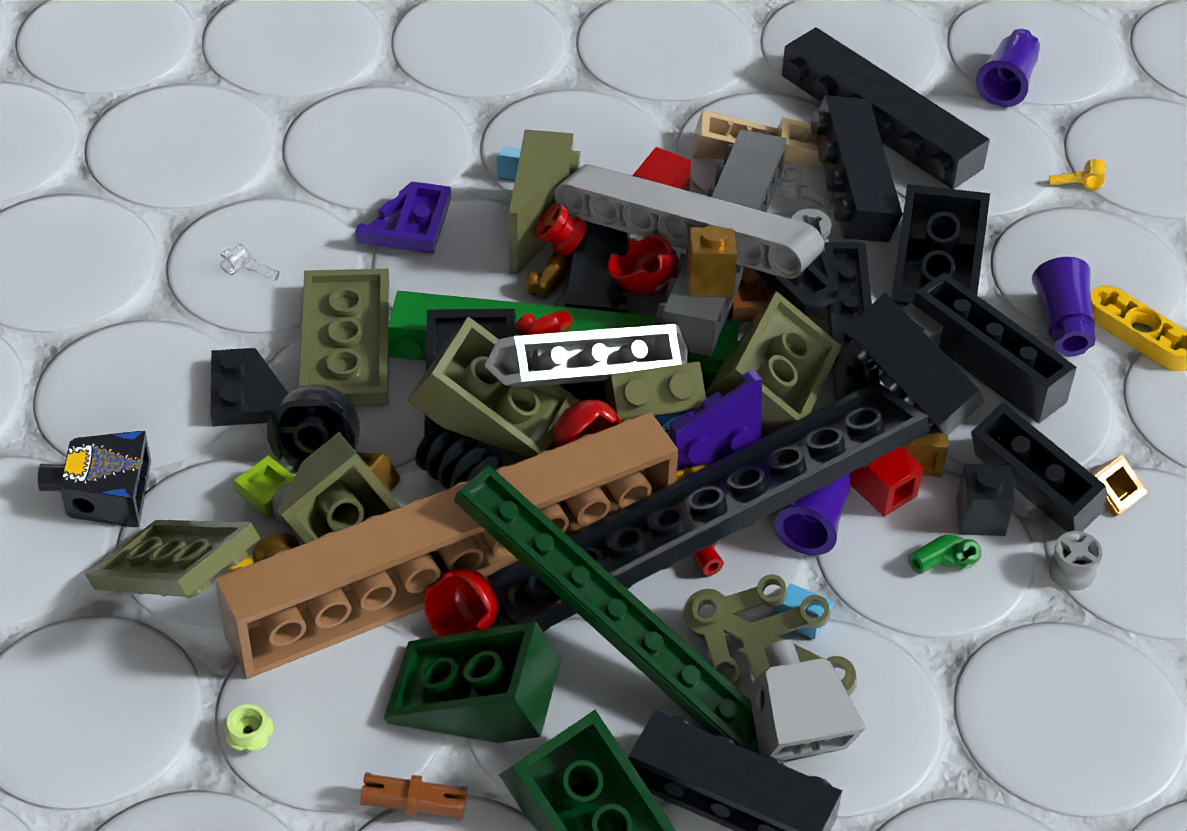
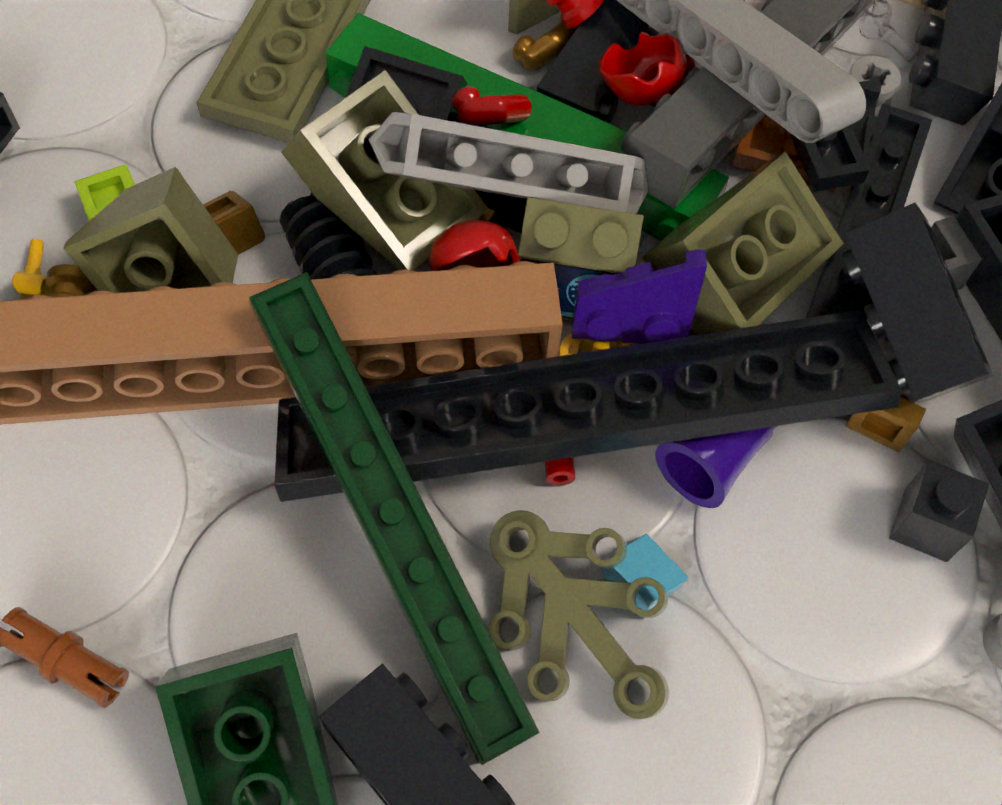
camera: 20 degrees right, 15 degrees up
(242, 388) = (153, 78): black wing -> none
(308, 420) = (189, 136): black cylinder -> none
(461, 603) = (236, 428): red hair -> none
(477, 684) = (206, 537): dark green slope -> none
(711, 261) = (713, 89): pearl gold brick -> none
(801, 706) = (569, 726): light grey torso -> none
(889, 481) = (829, 444): red brick -> none
(947, 551) = (860, 561): green arm -> none

